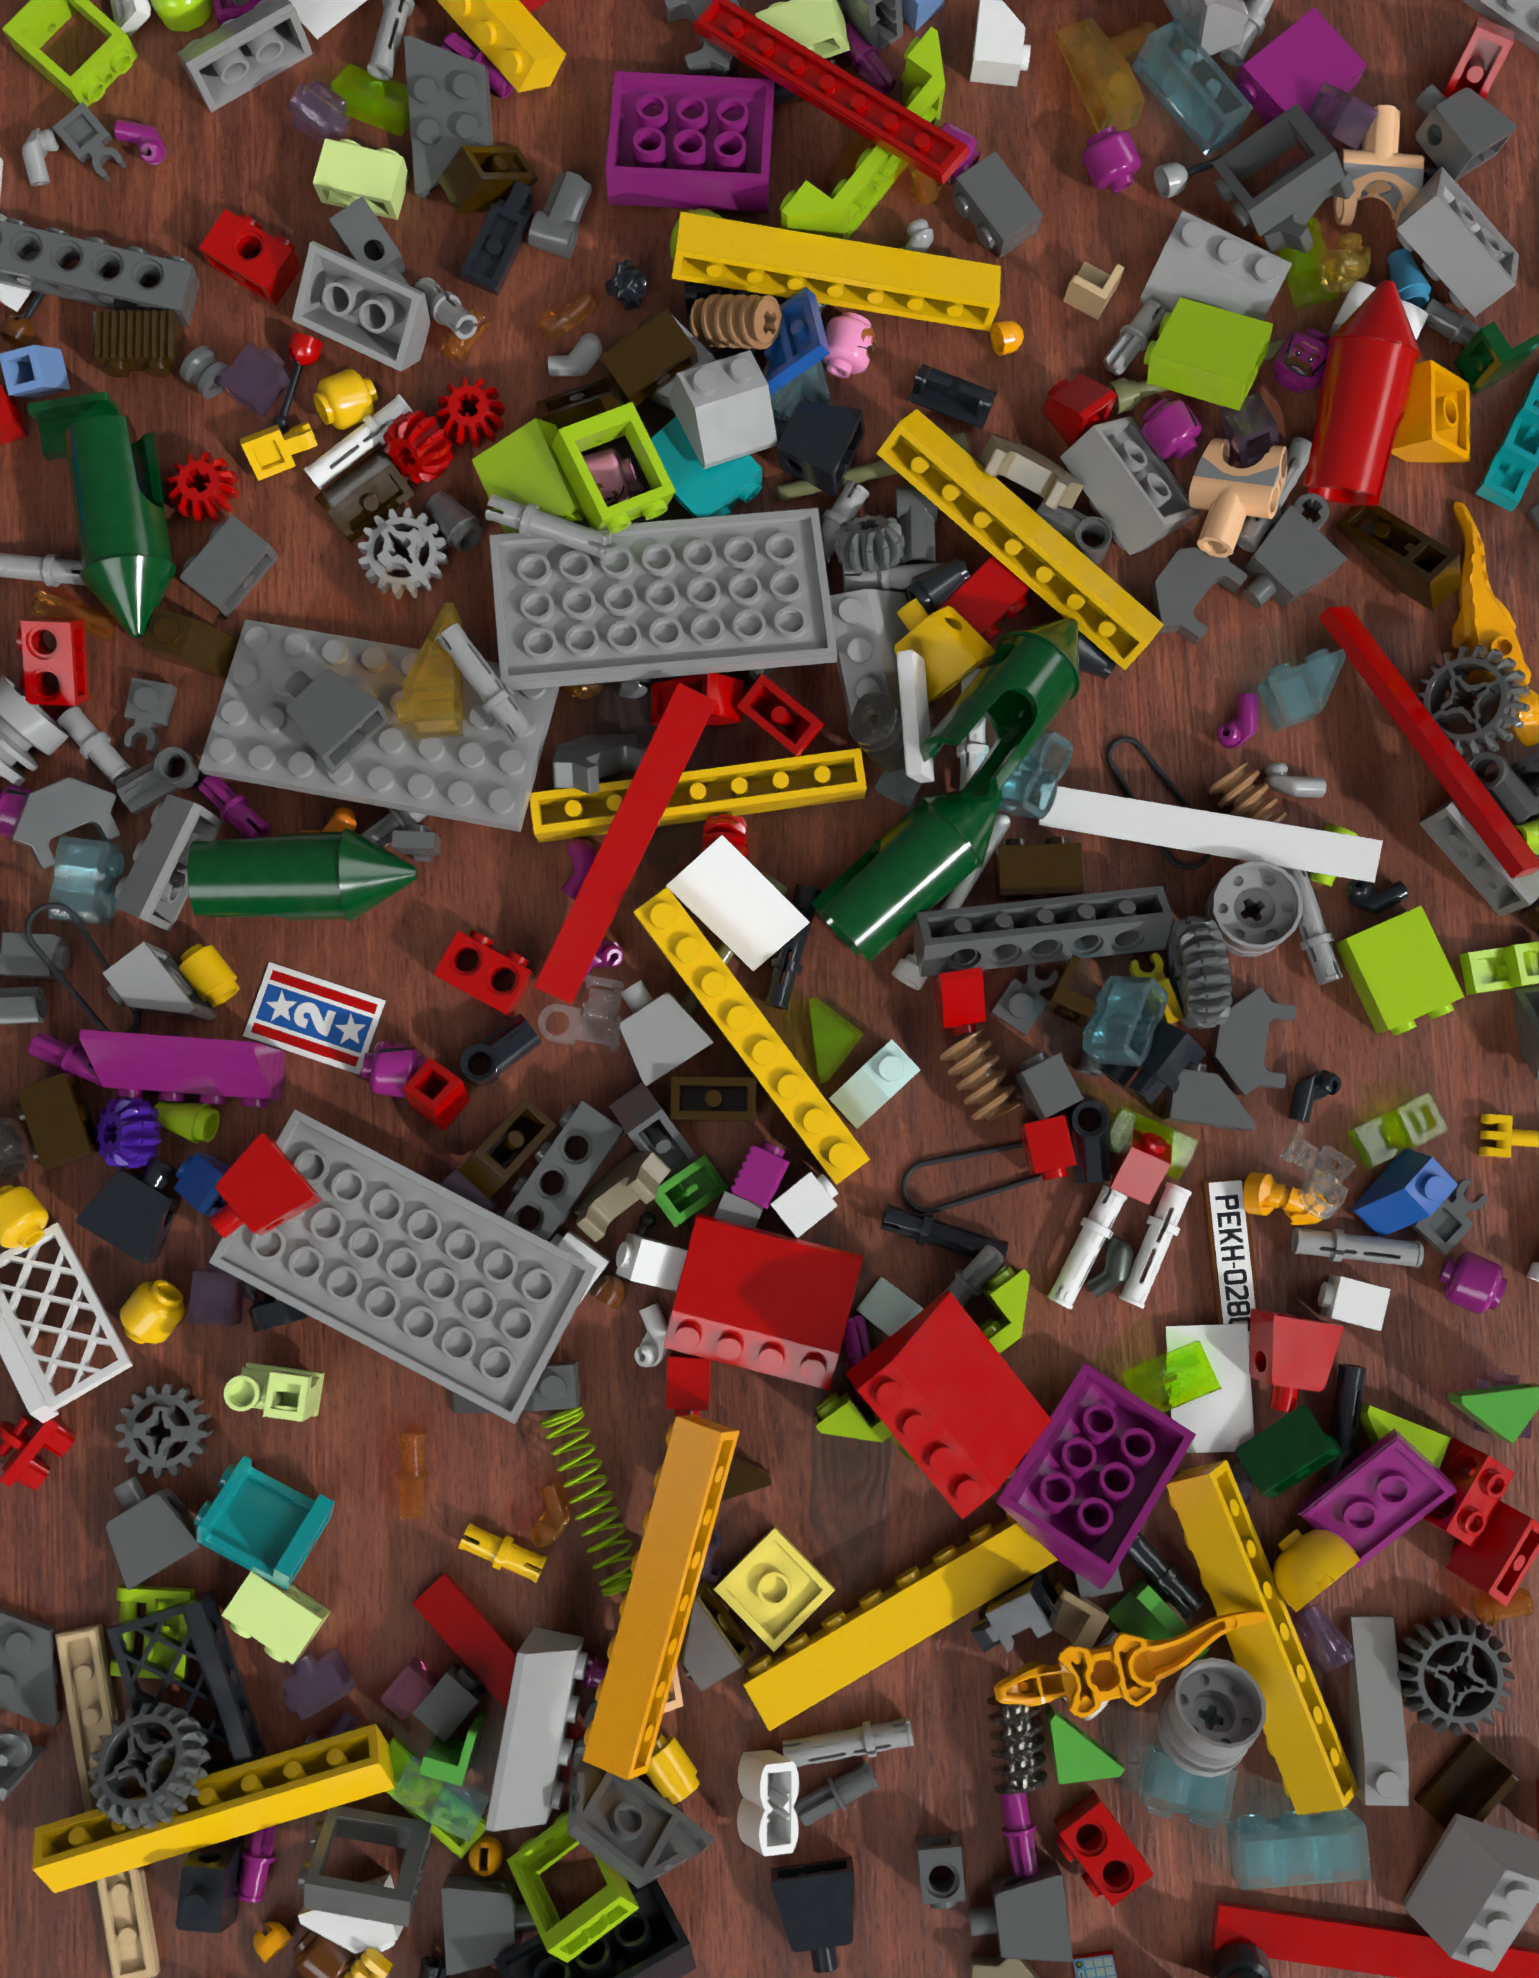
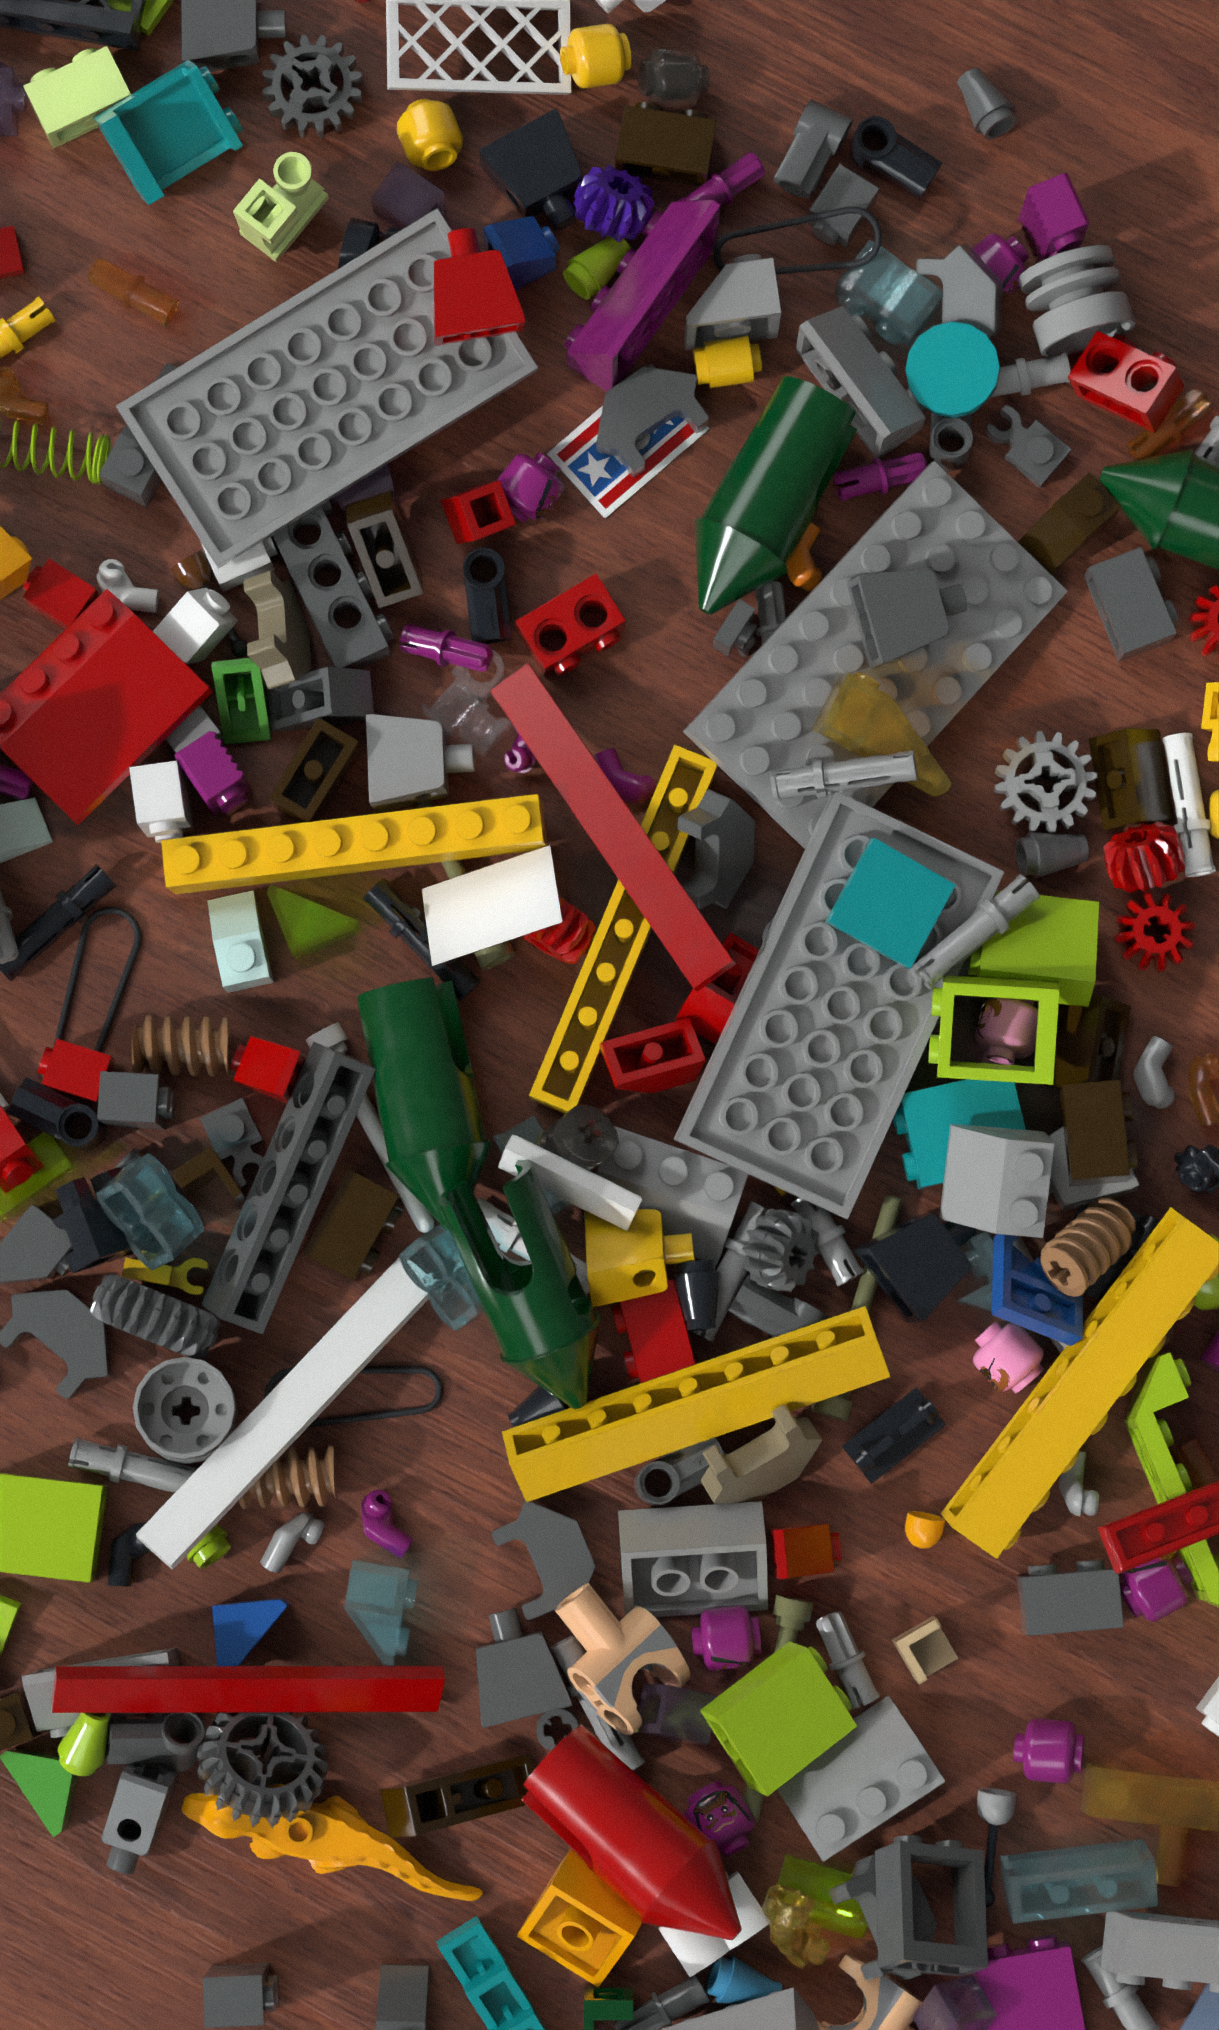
camera: 120 degrees right, 0 degrees up
(117, 792) = (953, 369): none -> teal tile
(280, 1020) = (642, 406): none -> dark grey piece
(557, 1058) = (445, 648): none -> magenta axle
(563, 598) = (890, 903): none -> teal tile
(1377, 777) = (242, 1626): none -> blue slope

